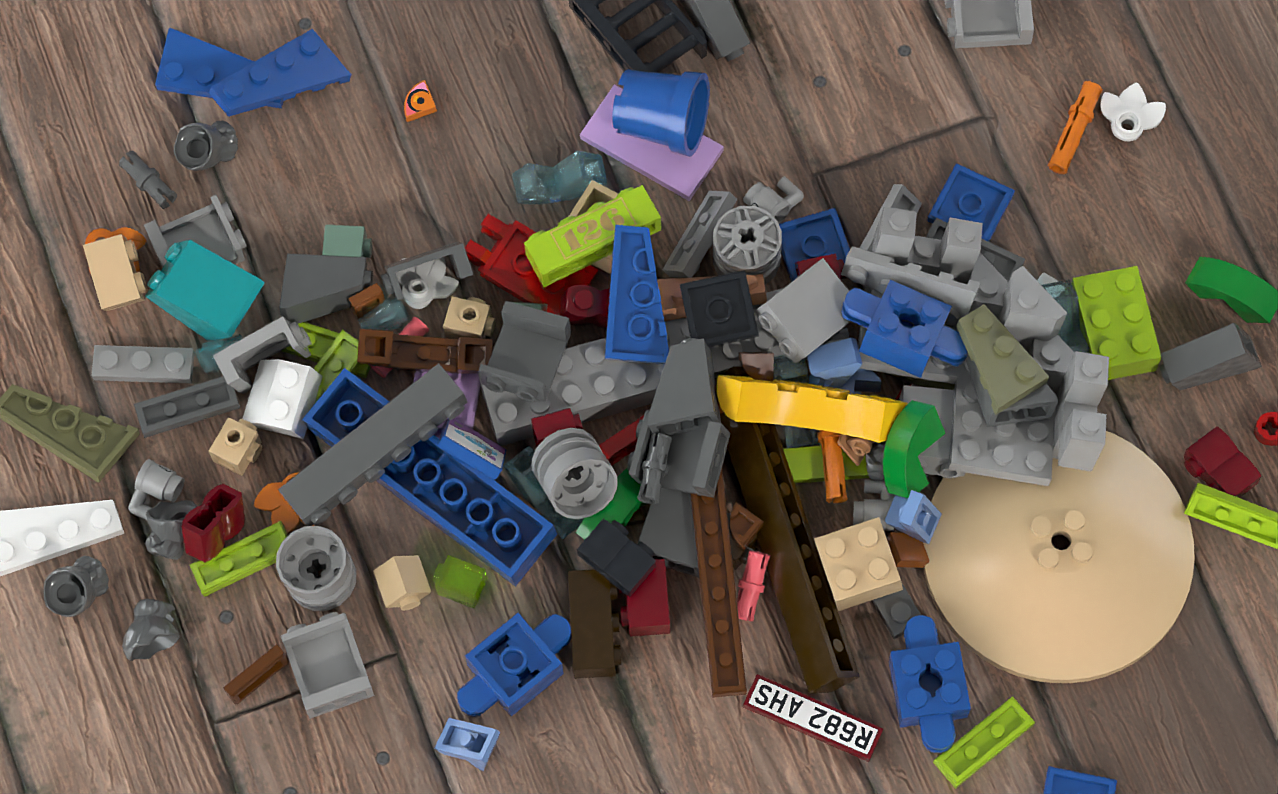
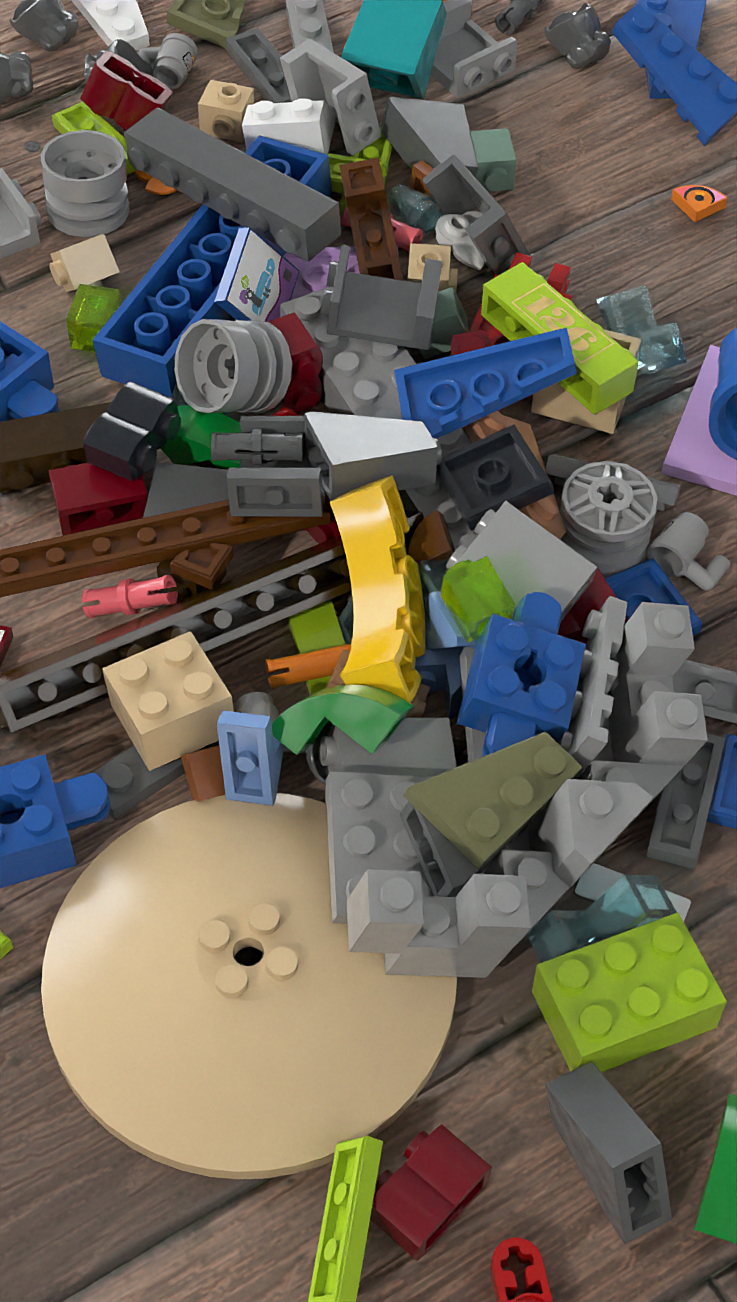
camera: 75 degrees right, 15 degrees down
(841, 340) = (473, 594): none -> clear neon green brick

